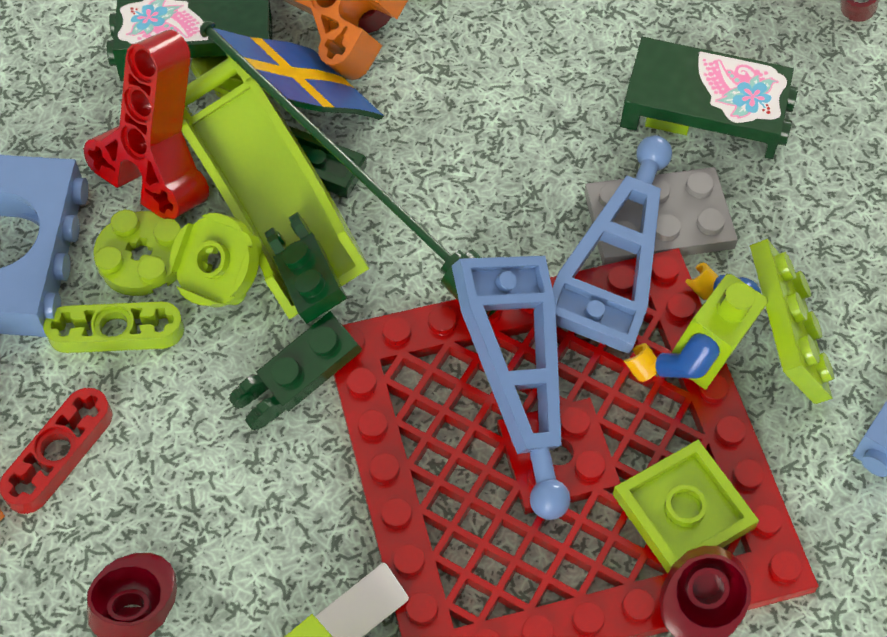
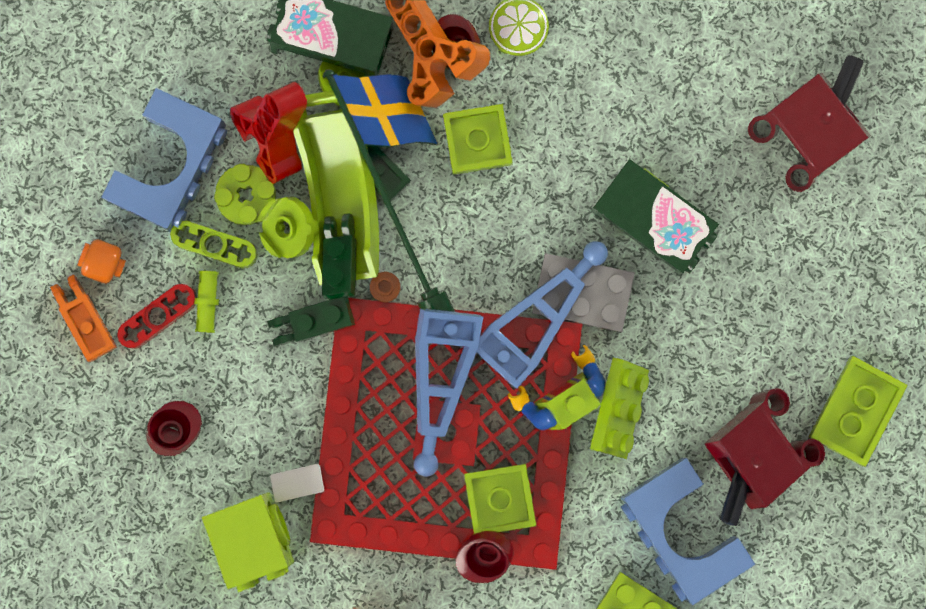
camera: 20 degrees right, 25 degrees up
(127, 402) = (206, 301): none -> lime pin
(384, 291) = (385, 287): none -> dark orange plate
(434, 88) = (477, 139): none -> lime plate

